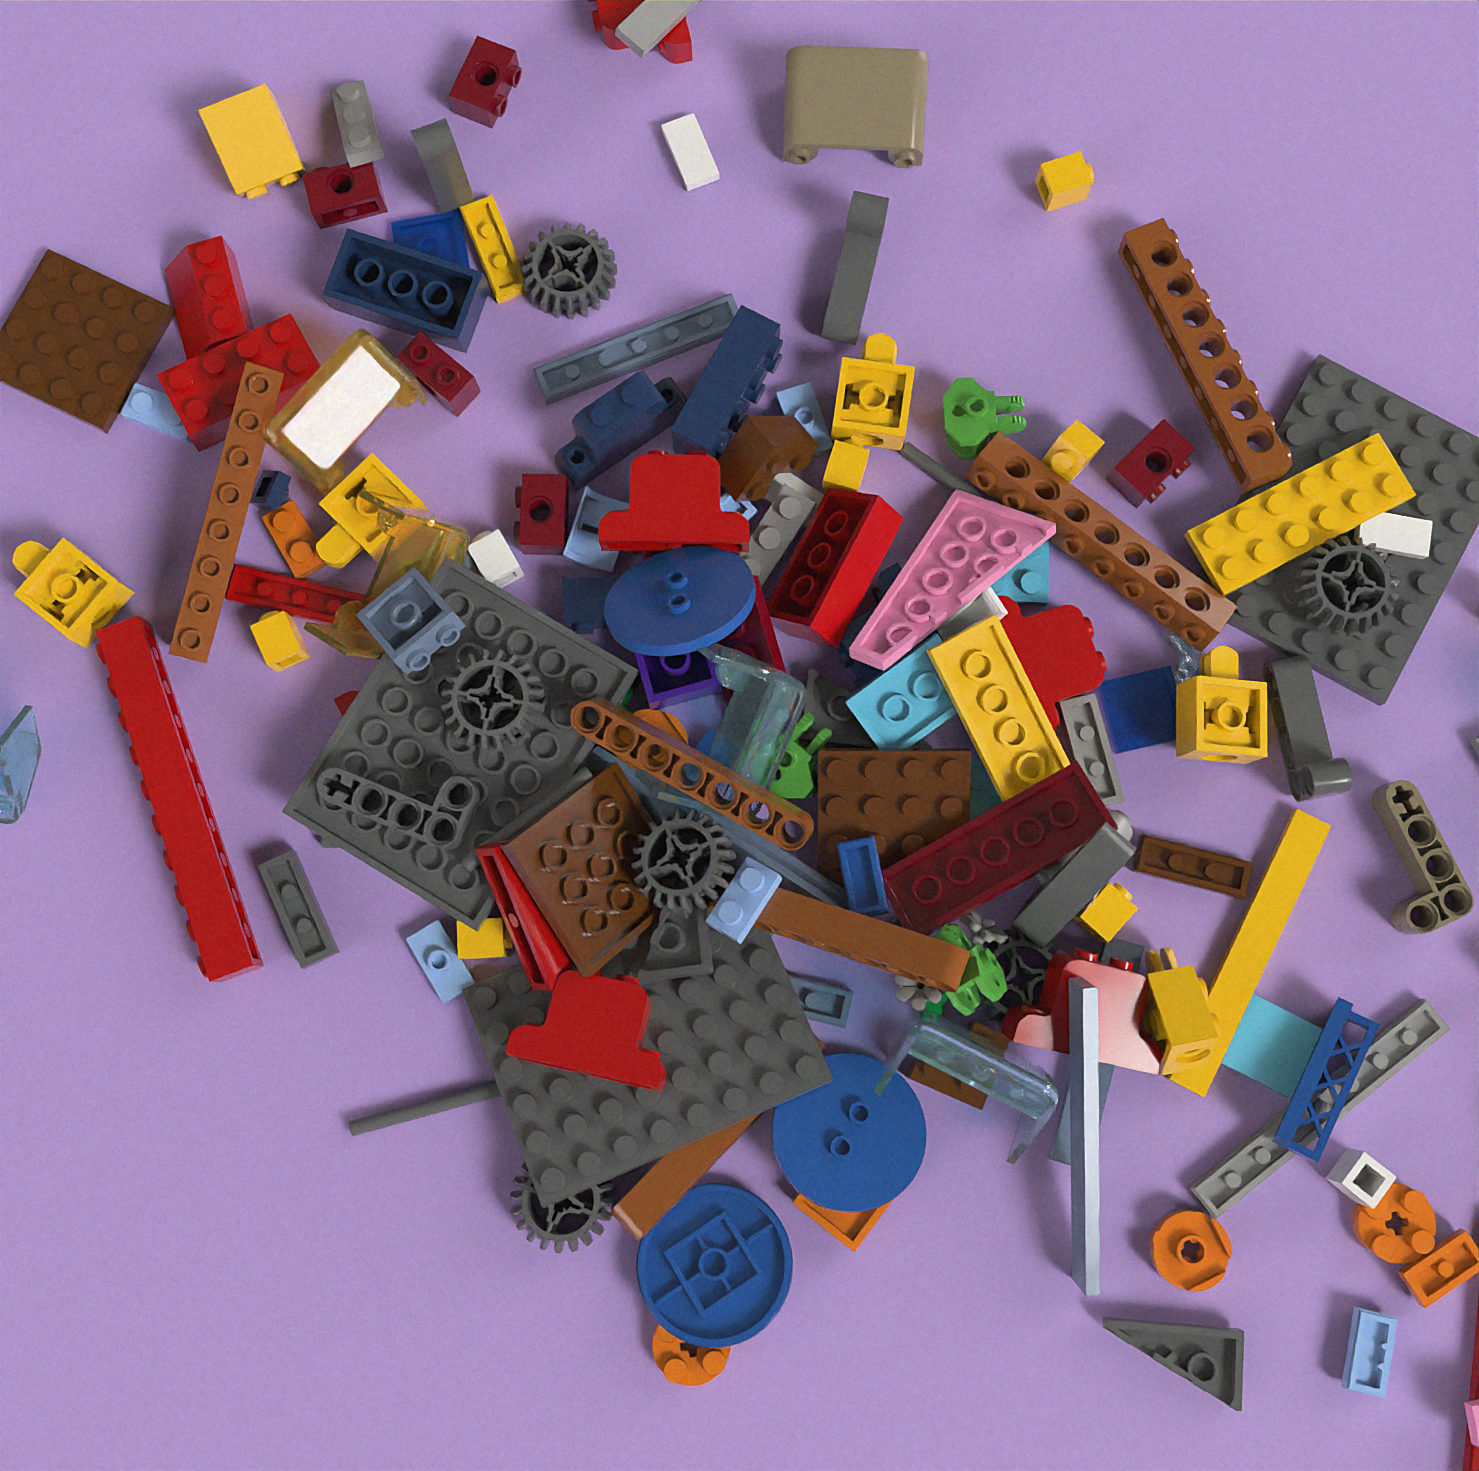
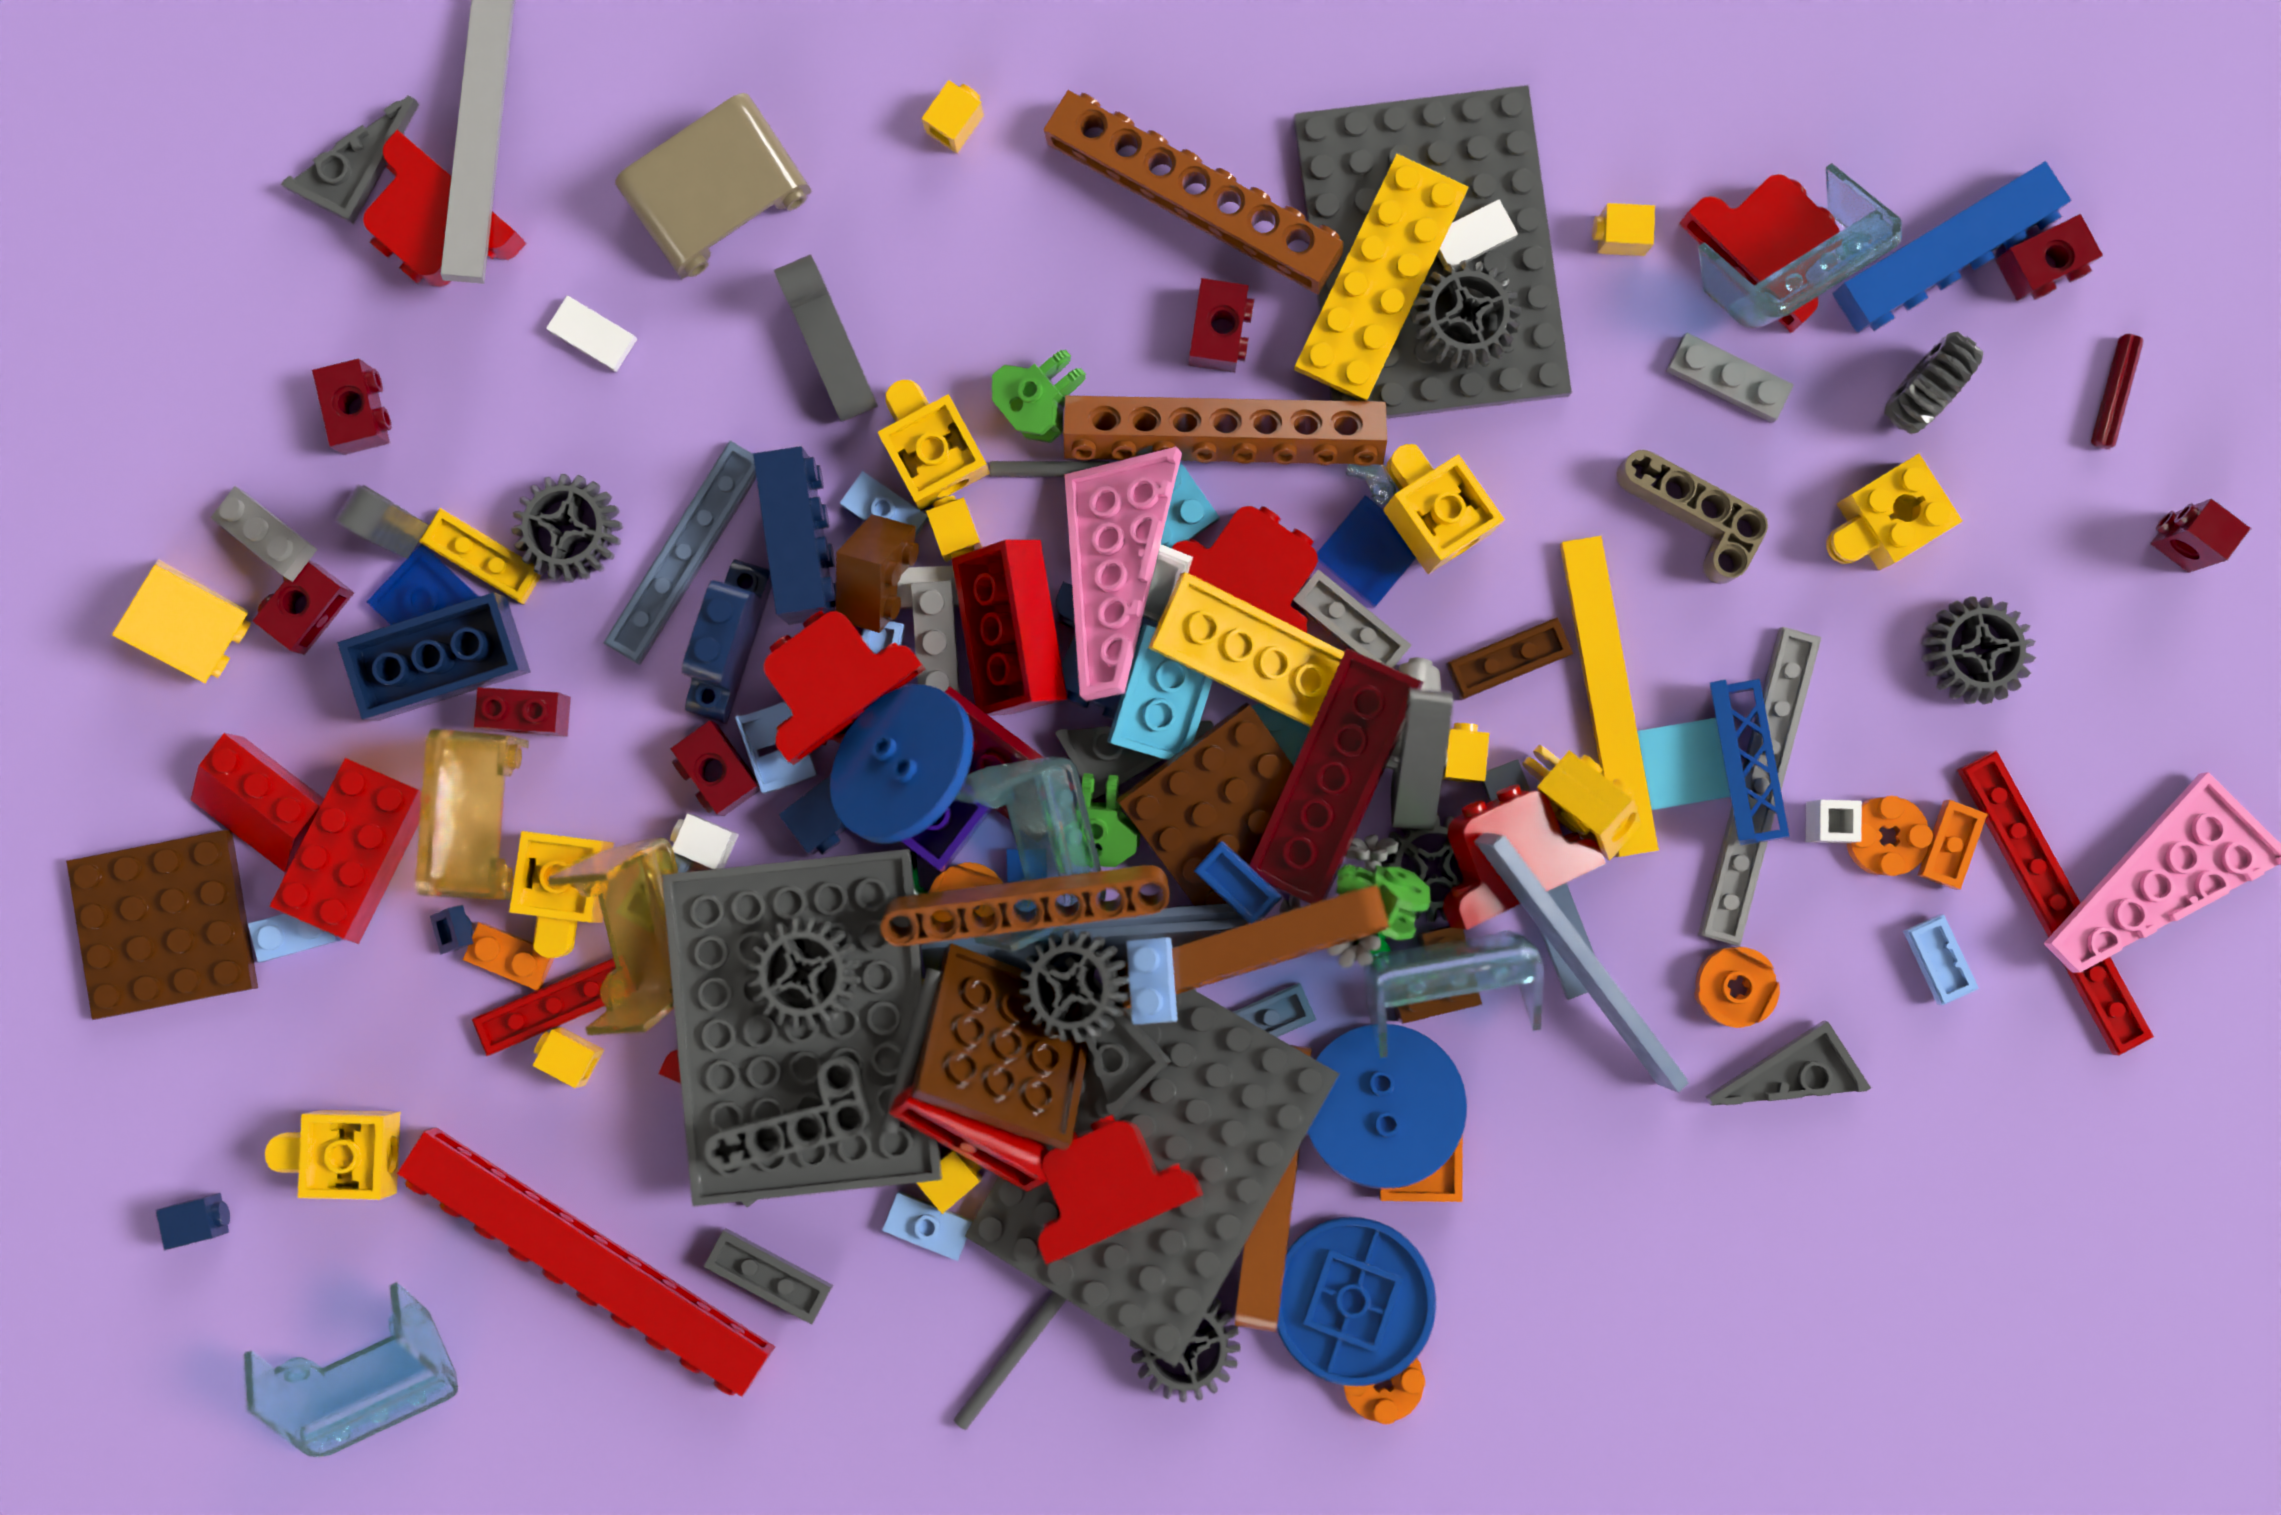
camera: 40 degrees left, 5 degrees up
(226, 513) = (433, 983): dark orange brick -> none
(411, 621) = (678, 958): sand blue plate -> none
(1072, 451) = (1142, 365): yellow brick -> none
(1302, 731) = (1518, 470): dark grey beam -> none

